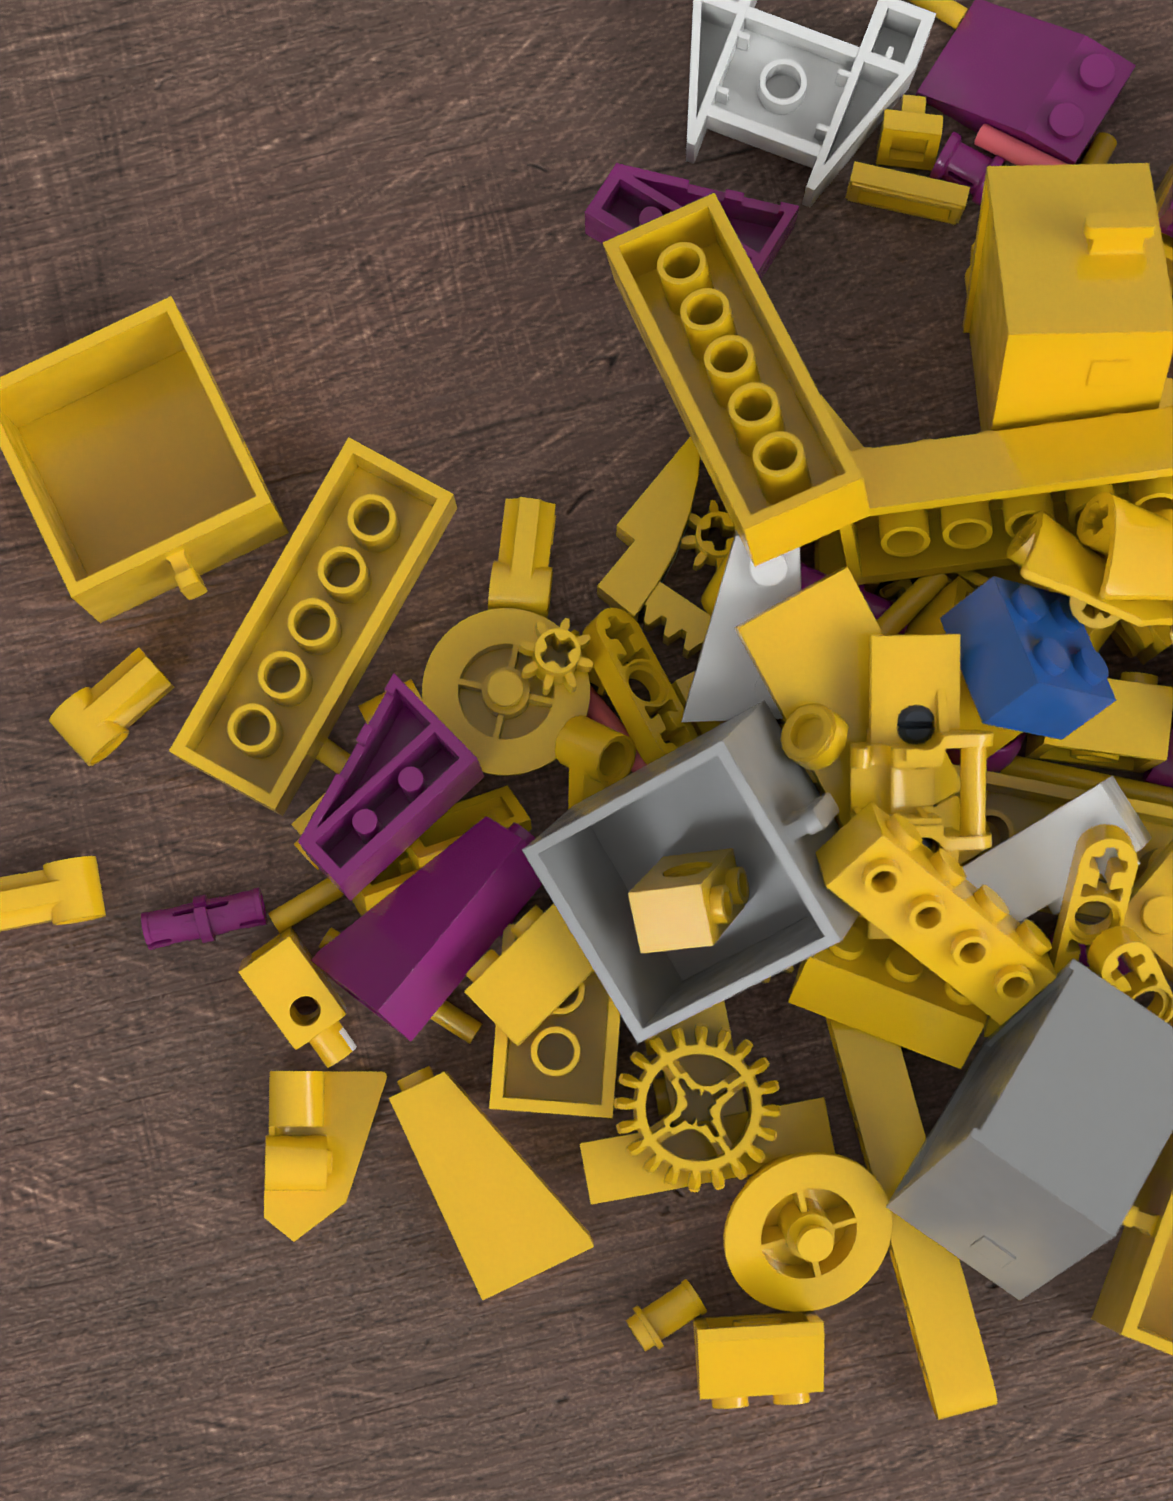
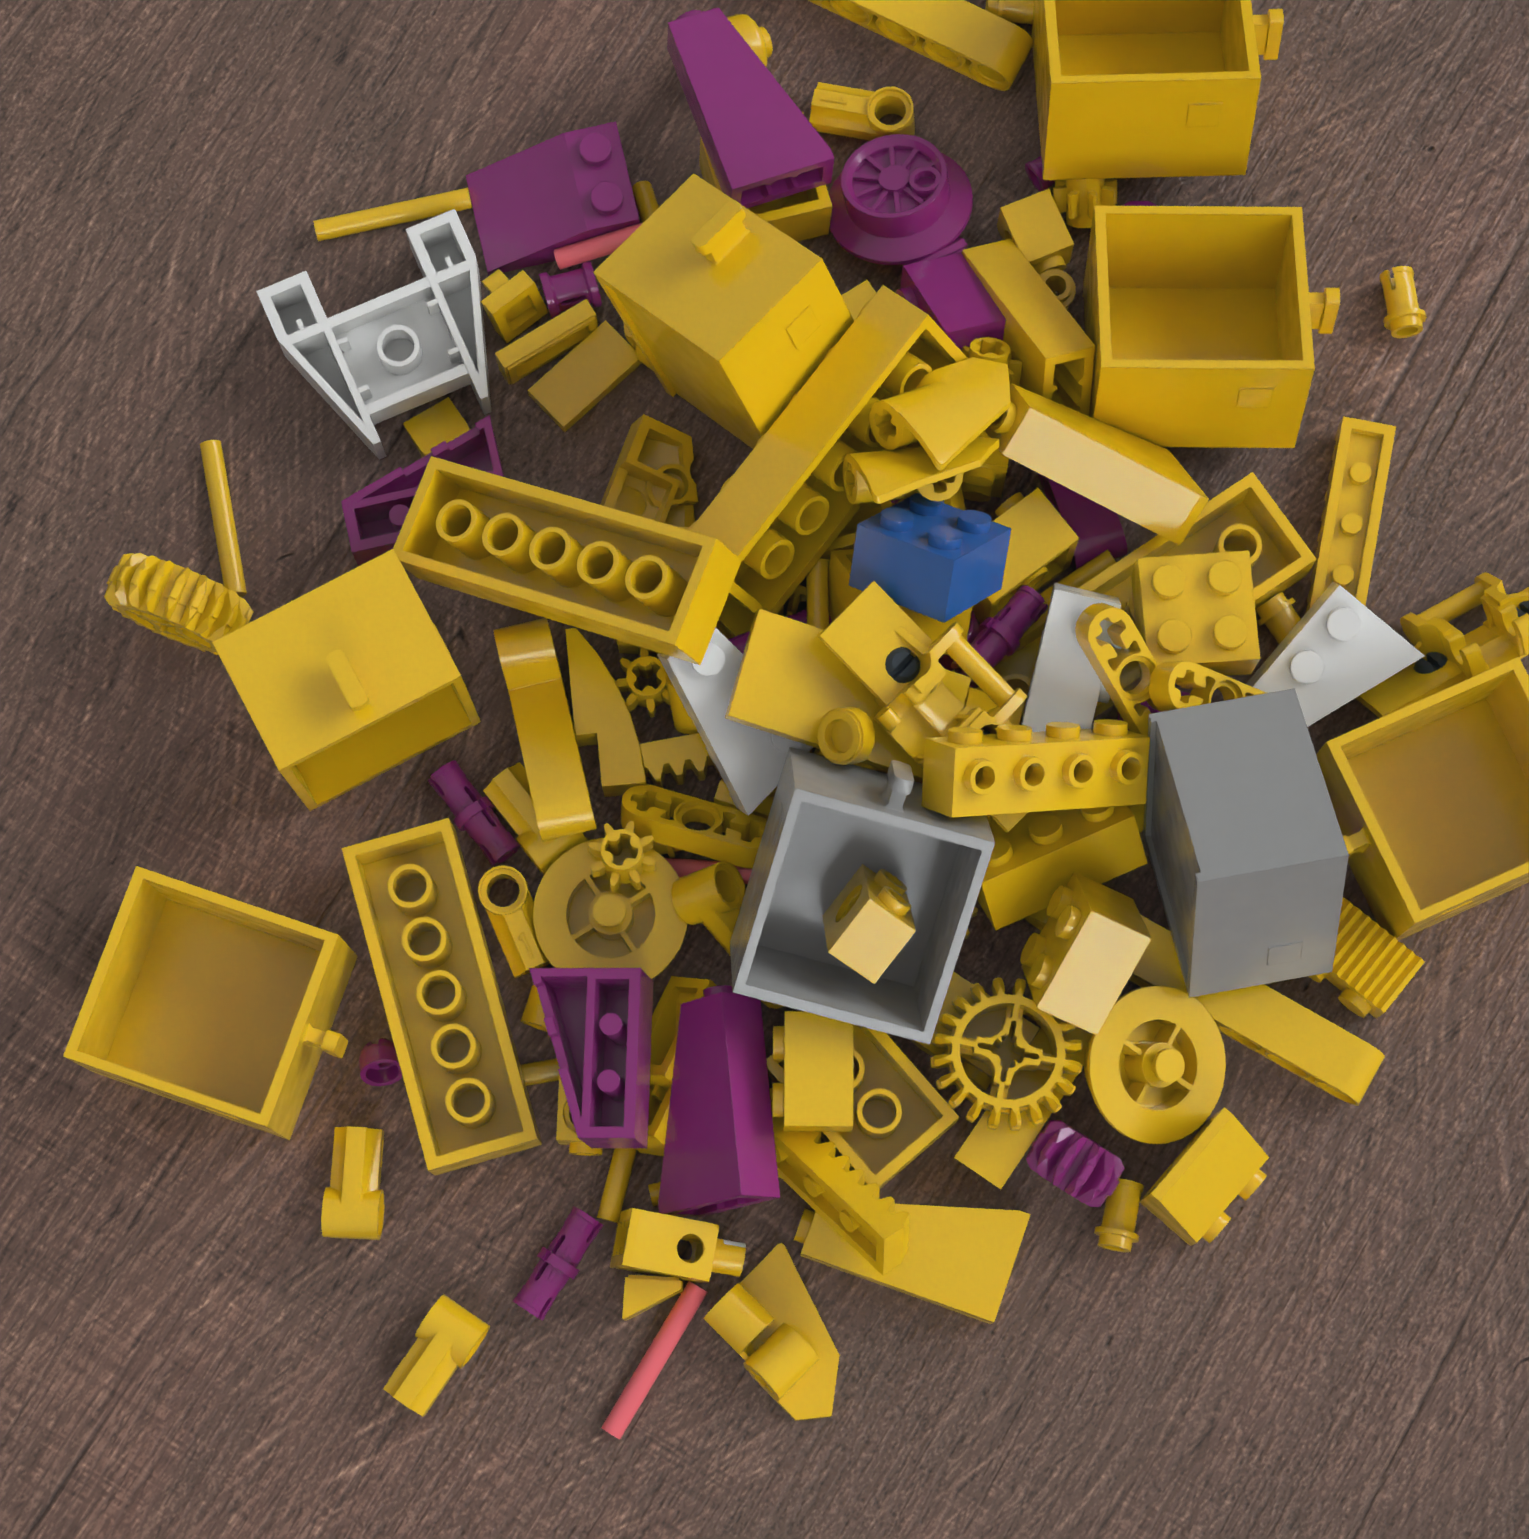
camera: 45 degrees left, 5 degrees down
(202, 1065) = (654, 1360): none -> coral bar
(218, 630) = (370, 1065): none -> magenta hinge
(243, 1007) = (645, 1292): none -> yellow slope
(415, 123) = (175, 601): none -> yellow gear
(427, 625) = (514, 922): none -> yellow piece
(459, 1089) = (842, 1196): none -> yellow gear
(476, 308) = (348, 681): none -> yellow piece
(482, 509) = (473, 813): none -> magenta pin
(519, 91) = (223, 516): none -> yellow bar
(596, 498) = (545, 729): none -> yellow beam
(668, 1242) = (1075, 1163): none -> magenta gear
(754, 176) = (436, 425): none -> yellow slope
(836, 1091) = (1084, 952): none -> yellow brick
(880, 382) = (654, 474): none -> yellow slope
(910, 249) = (584, 376): none -> yellow tile
(1031, 775) = (1002, 633): none -> magenta pin
(1058, 1322) = (1368, 964): none -> yellow brick

